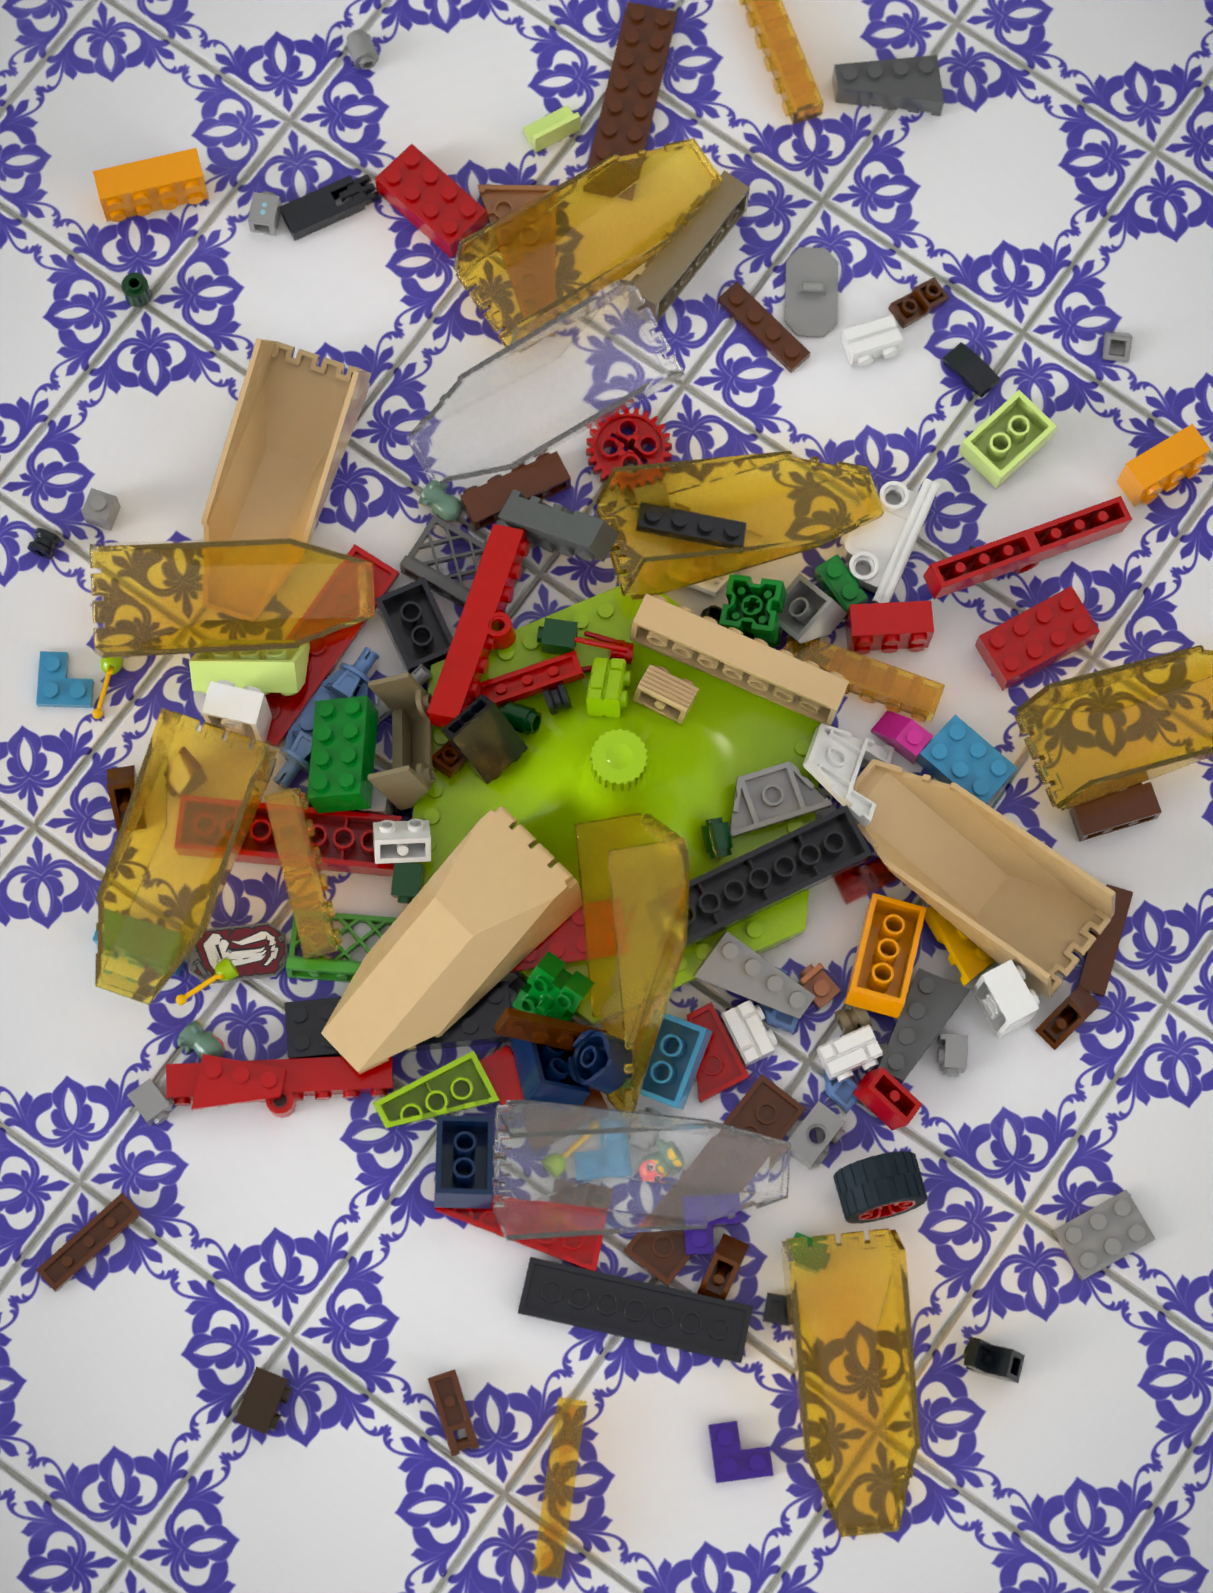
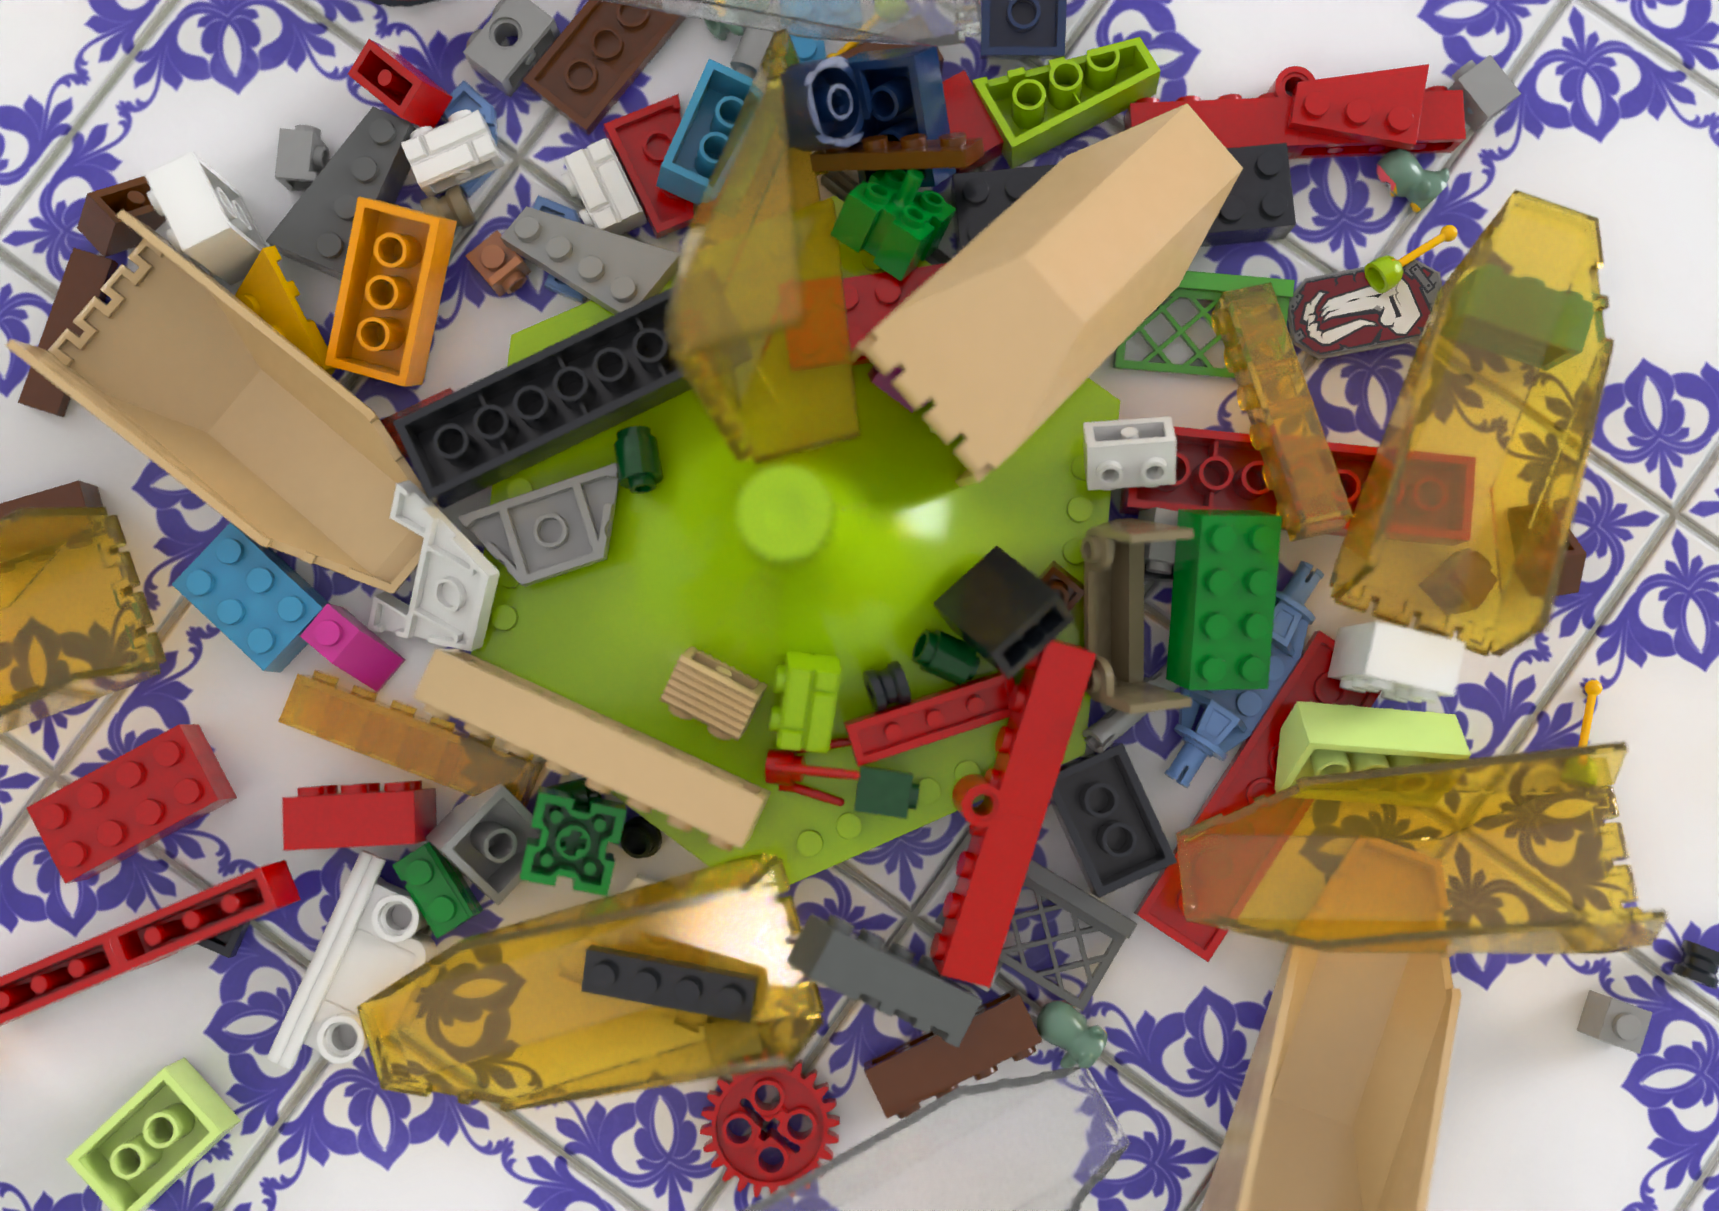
camera: 175 degrees left, 10 degrees up
(56, 689) = (1664, 734): dark azure plate -> none
(407, 881) = (1116, 394): dark green brick -> none

